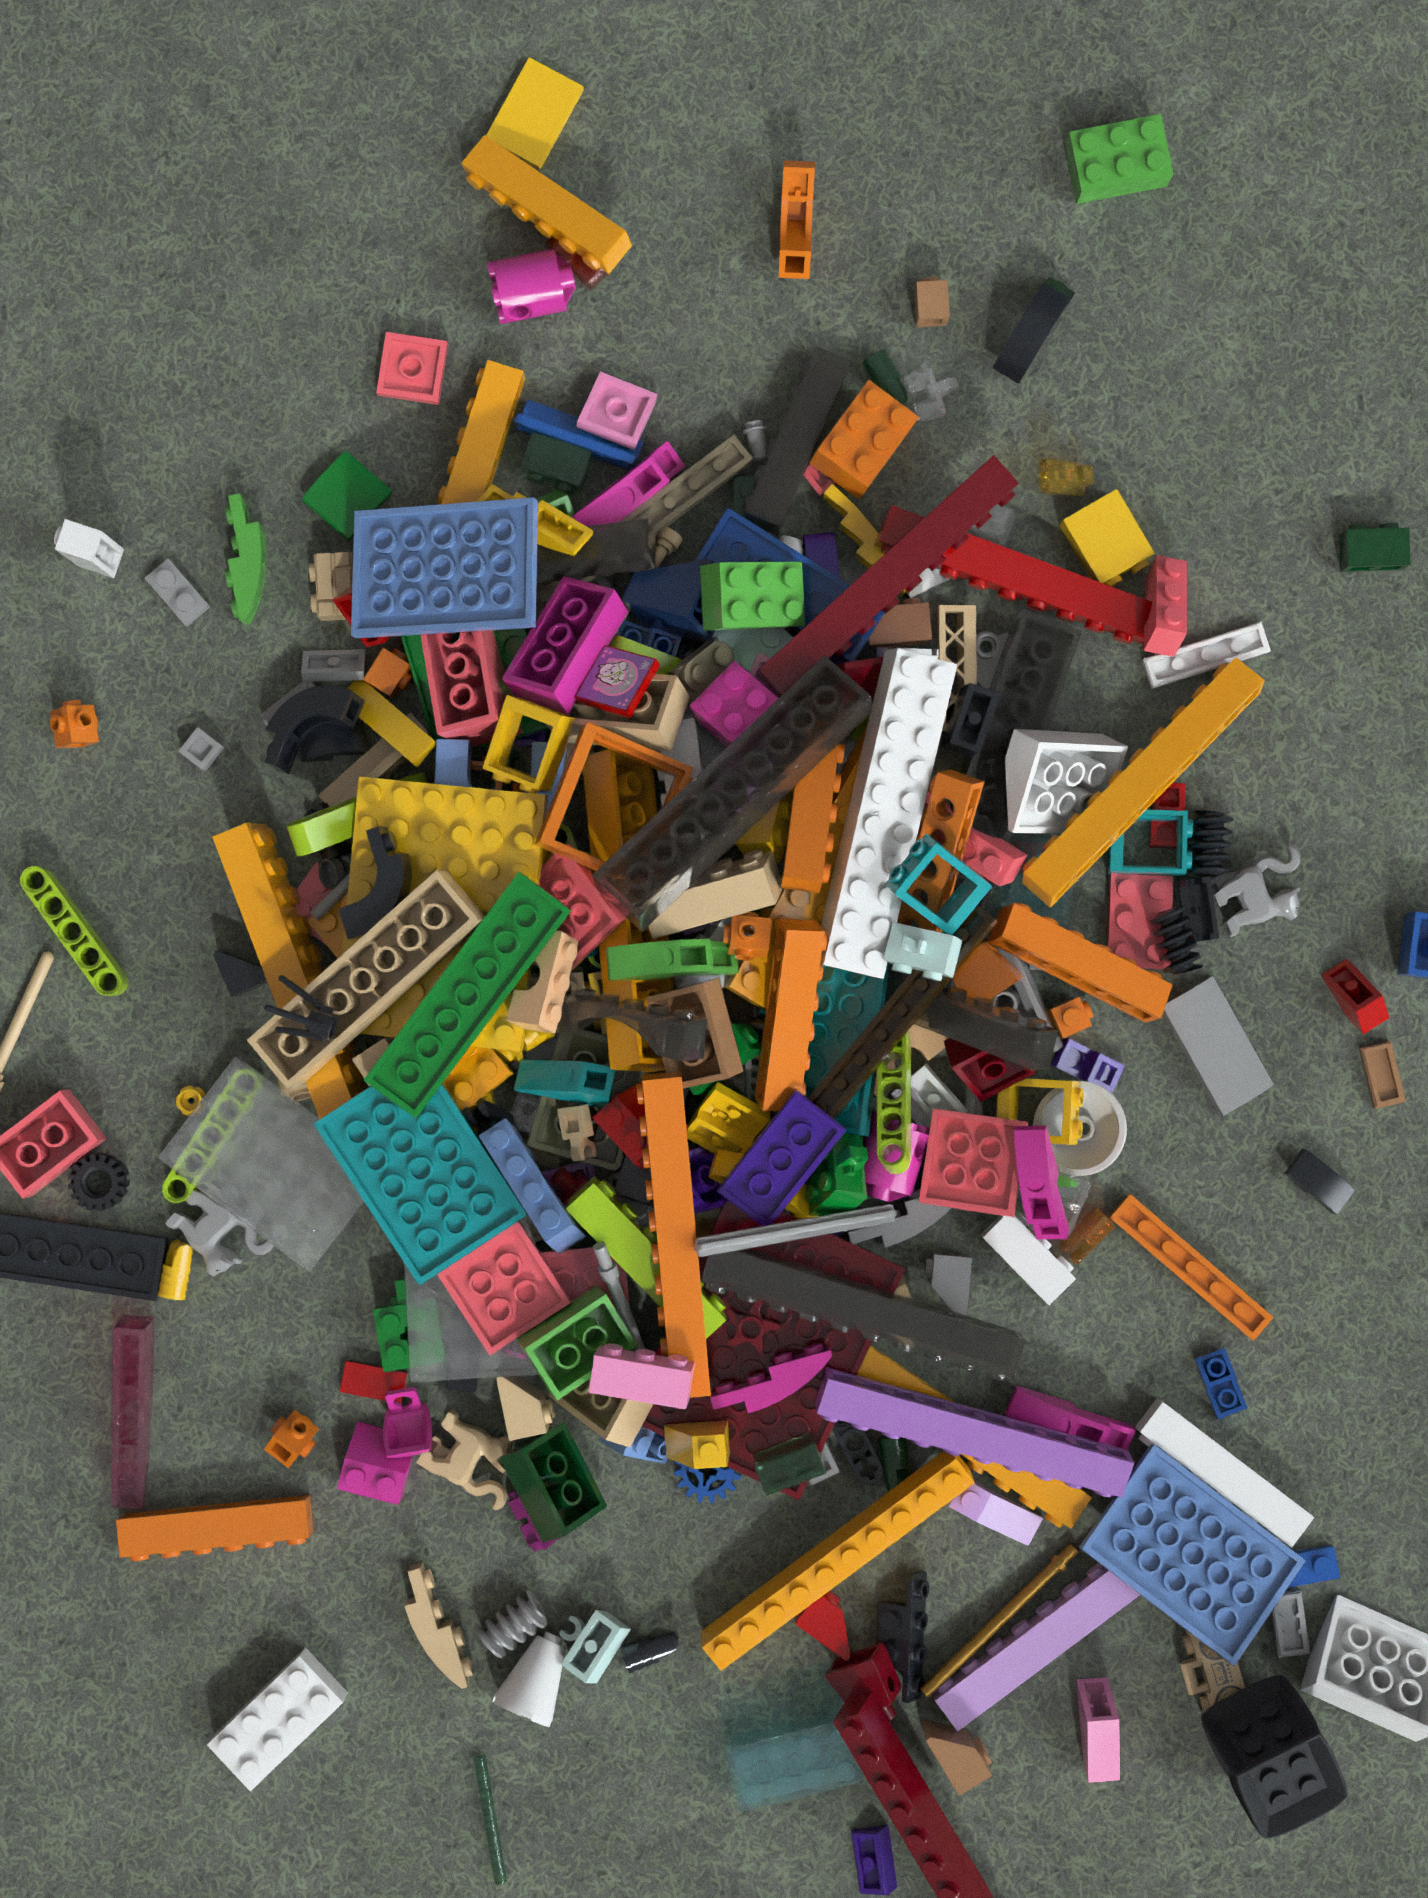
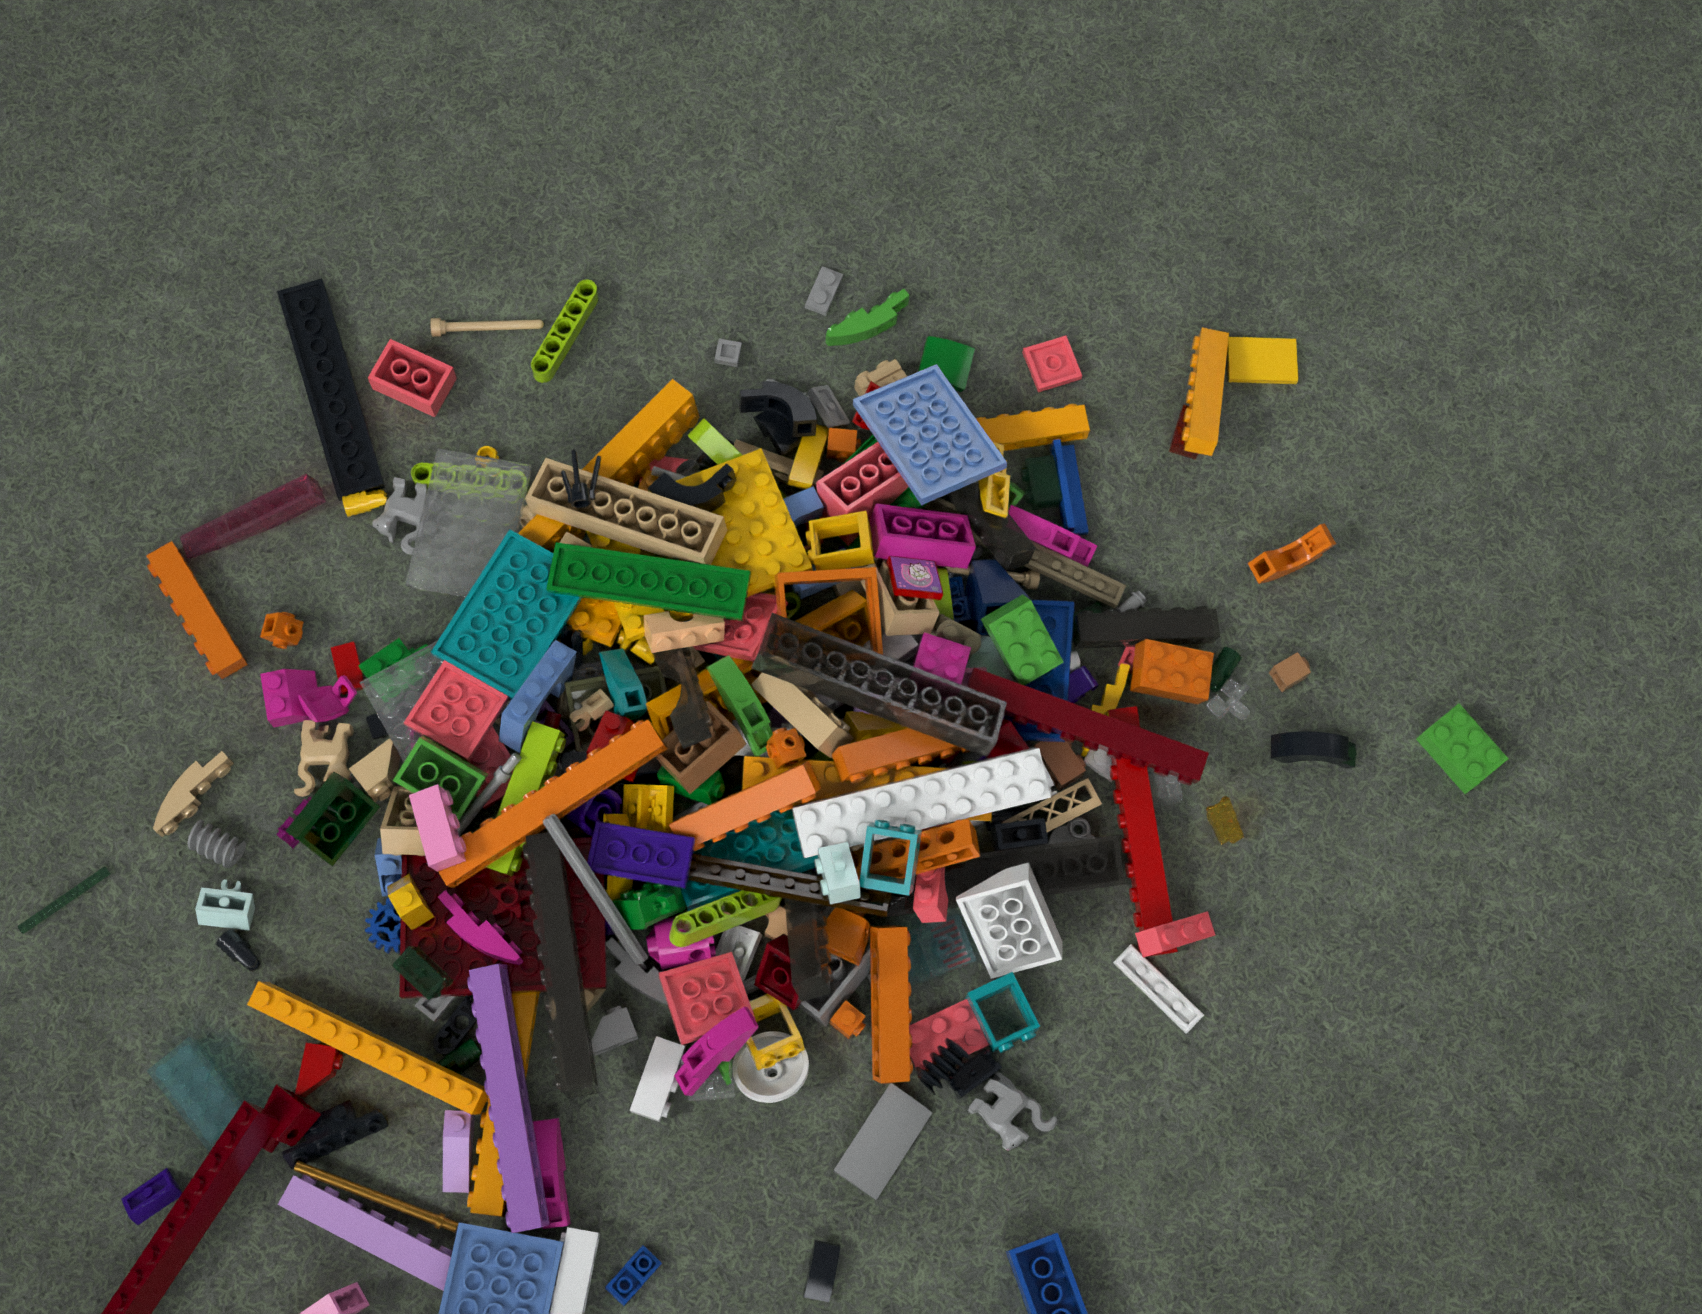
camera: 60 degrees right, 15 degrees down
(74, 725) = (702, 267): orange brick -> none
(80, 1186) = (394, 414): black tyre -> none
(88, 548) = (822, 219): white brick -> none
(238, 973) = (588, 443): black slope -> none
(277, 1719) = (76, 715): white brick -> none
(531, 285) = (1148, 408): dark pink cylinder -> none
(534, 1681) = (180, 878): white cone -> none
(617, 410) = (1098, 503): bright pink plate -> none
(959, 1754) = (260, 1212): medium nougat slope -> none
(1087, 1064) = (820, 1053): slope -> none
(1092, 1230) = (701, 1117): clear orange hinge -> none
(1107, 539) = (1199, 874): yellow brick -> none
(1142, 782) = (1043, 981): light orange brick -> none
(1164, 833) = (1043, 1011): red slope -> none
(1190, 1267) = (709, 1206): orange plate -> none
(1211, 843) = (1026, 1059): black piece -> none
(1356, 996) = (972, 1226): red slope -> none
(1374, 548) = (1301, 1069): dark green brick -> none
(1382, 1074) = (925, 1279): medium nougat tile -> none

